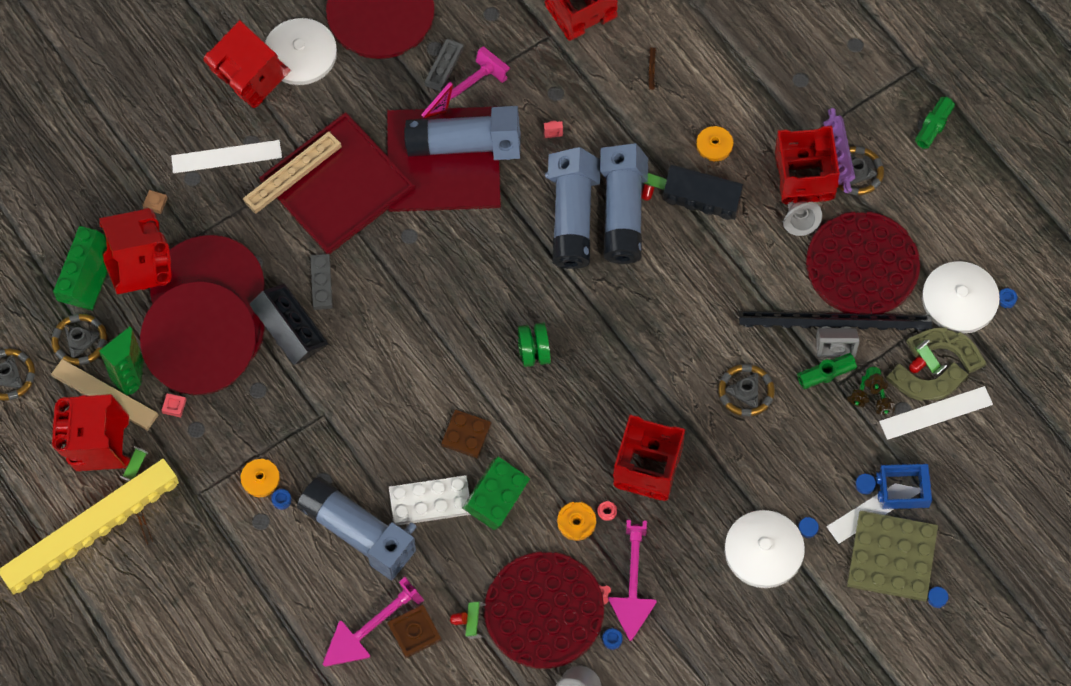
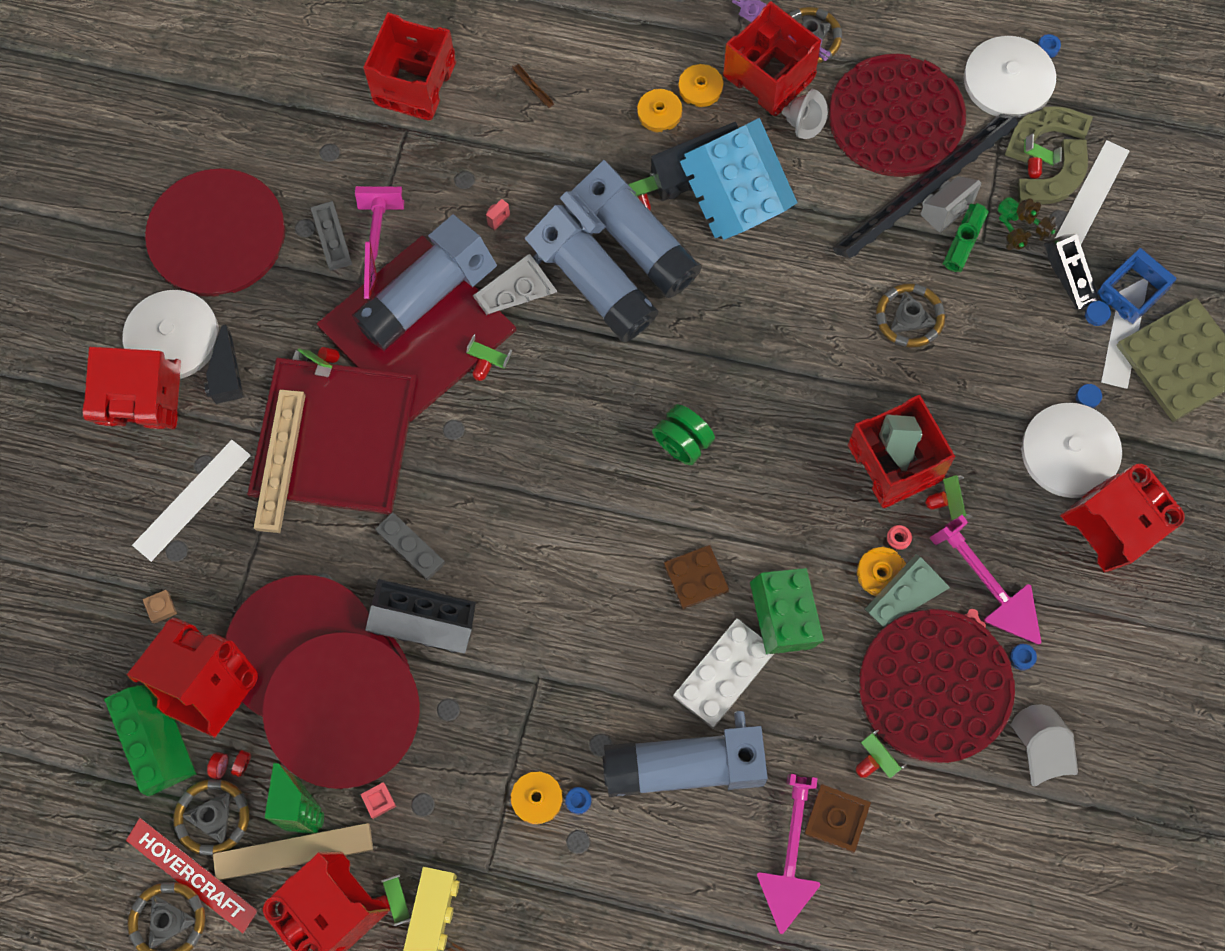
camera: 40 degrees left, 5 degrees up
(41, 360) = (191, 874): none -> sticker
(107, 314) = (217, 765): none -> red tile
(120, 323) = (241, 763): none -> red tile
(308, 97) = (223, 371): none -> black slope
(375, 132) = (324, 355): none -> piece
(466, 209) = (486, 357): none -> piece
(521, 180) = (515, 286): none -> light grey wing
(578, 542) = (906, 591): none -> sand green wing
(595, 165) = (576, 206): none -> sand blue plate
(652, 447) = (900, 438): none -> sand green slope
(659, 513) = (952, 498): none -> bright green piece
(716, 222) = (738, 180): none -> dark azure slope
(745, 594) = (1116, 514): none -> red piece
(755, 156) = (697, 94): none -> light orange plate
(873, 445) = (1072, 269): none -> black slope

